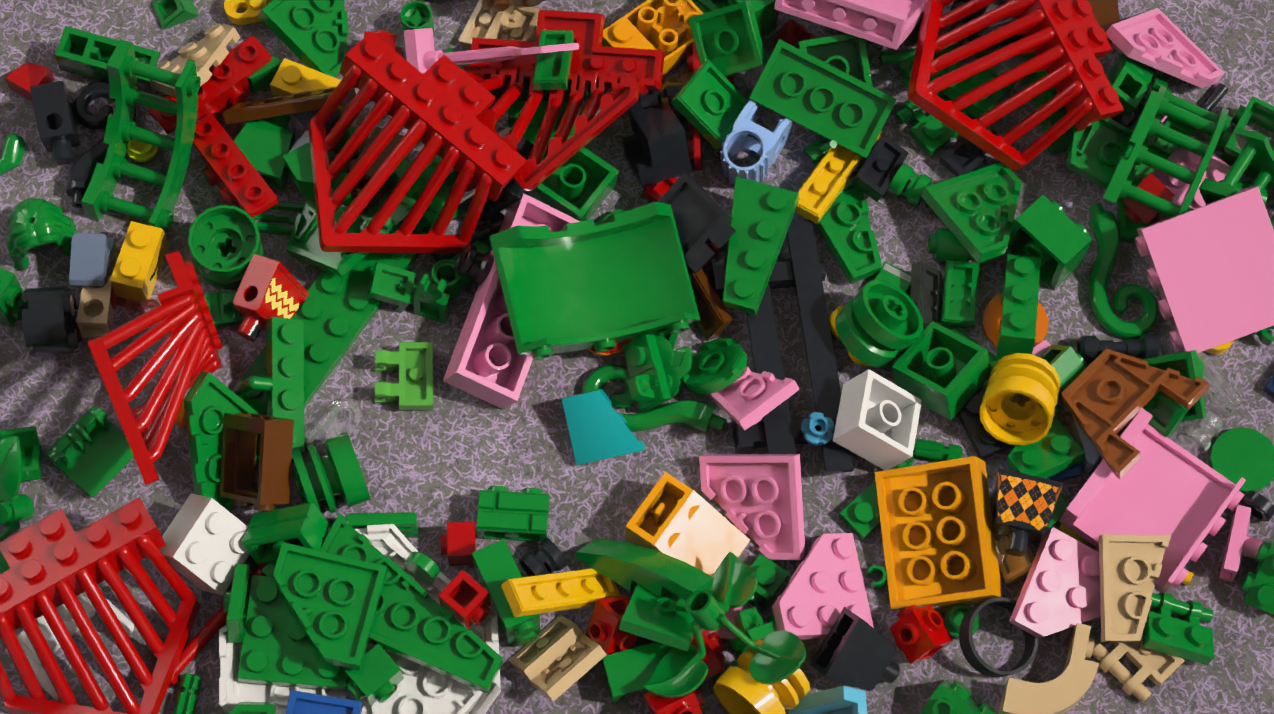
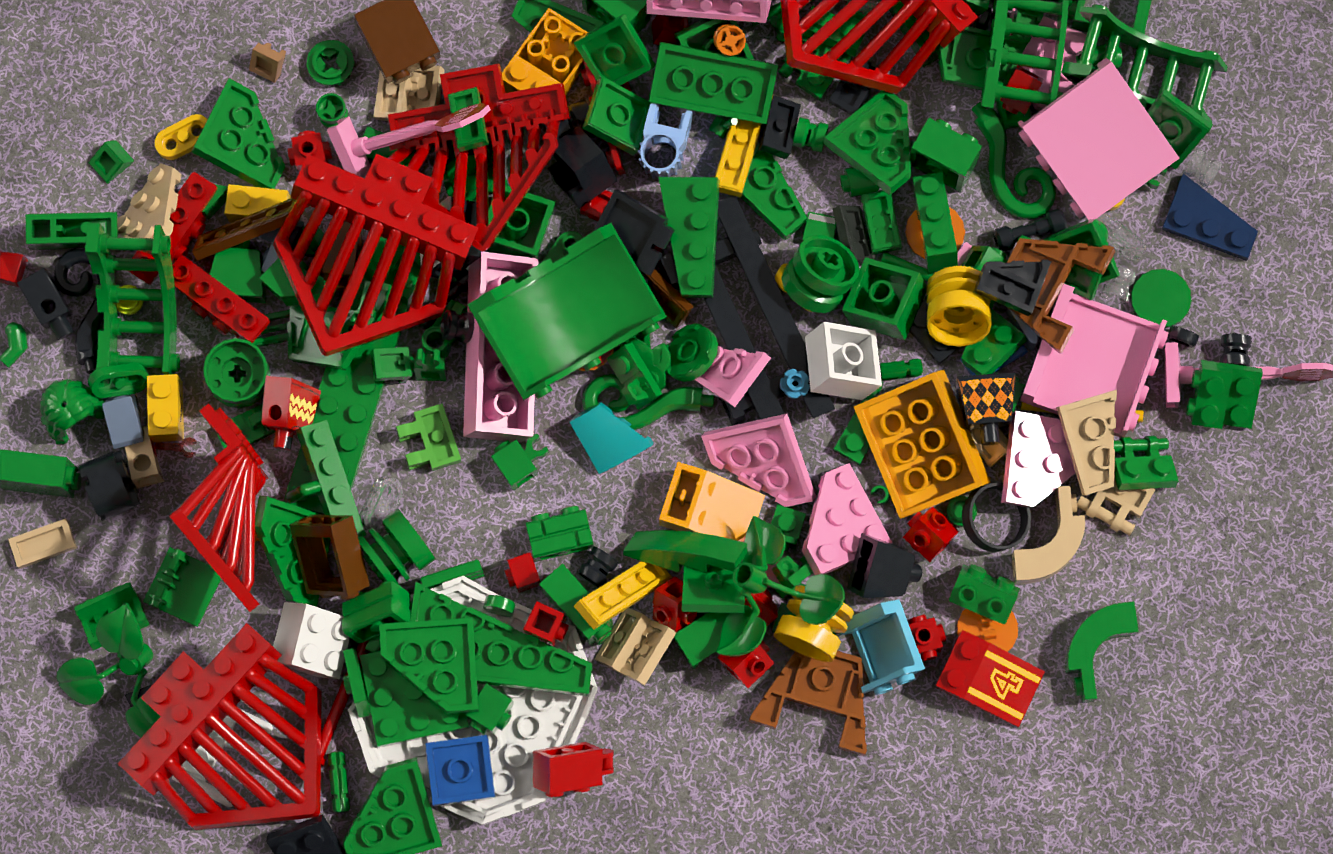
camera: 10 degrees left, 10 degrees up
(99, 217) = (118, 380): none -> green plate
(492, 428) = (517, 463): none -> green brick
(858, 57) = (732, 44): none -> orange wheel
(1087, 388) = (1013, 283): none -> black wing

